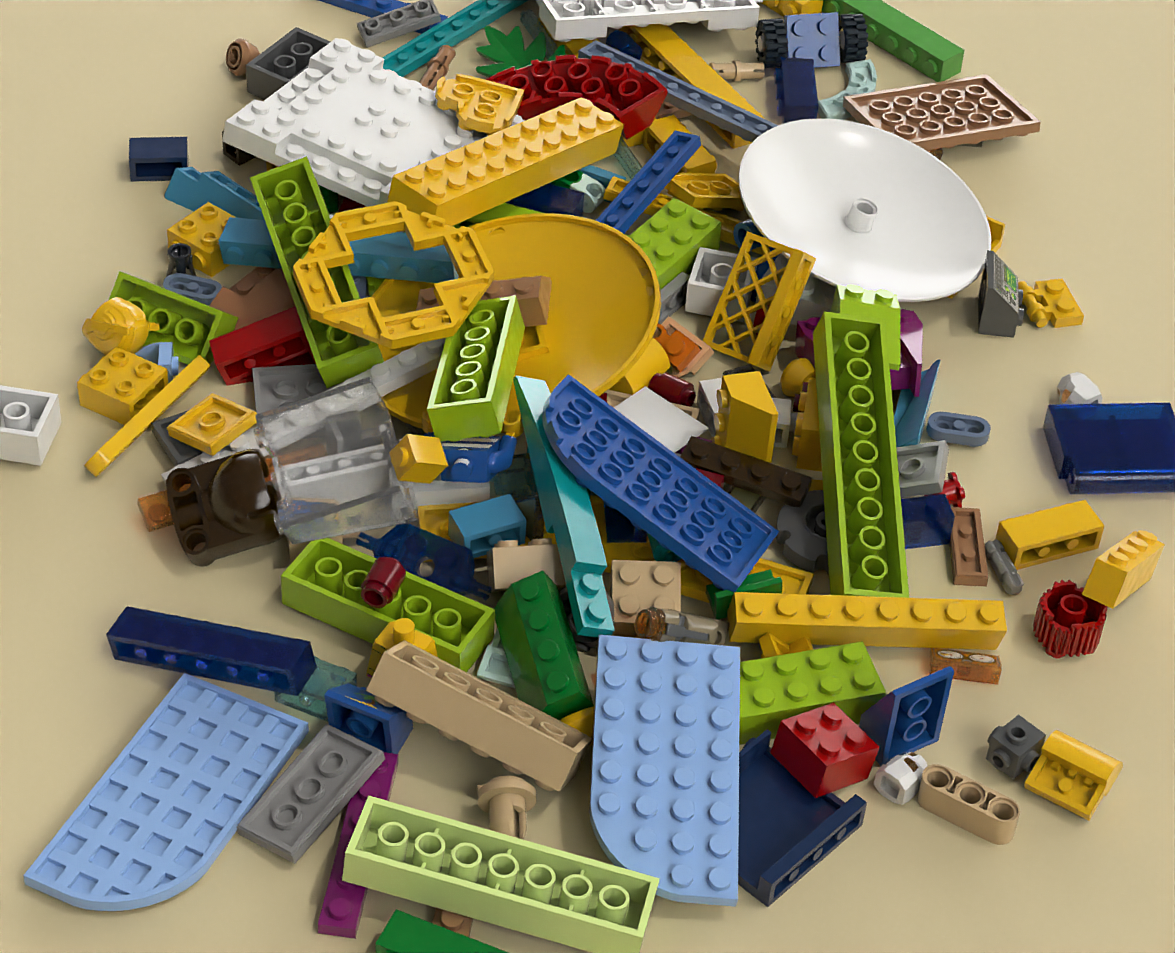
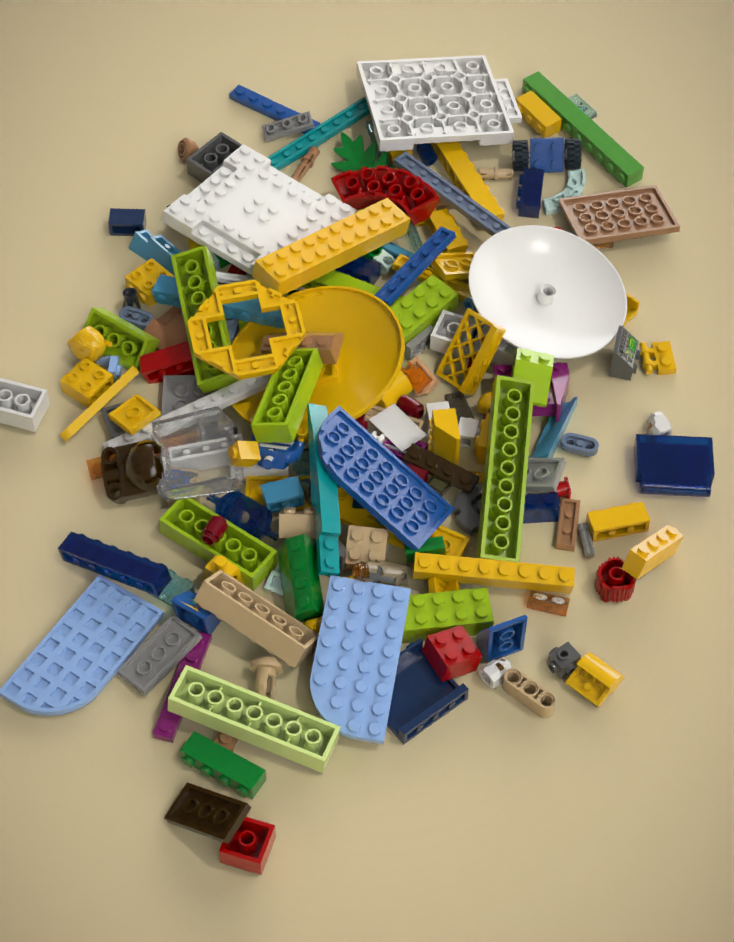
camera: 10 degrees right, 10 degrees up
(479, 102) = (325, 198): yellow plate -> none

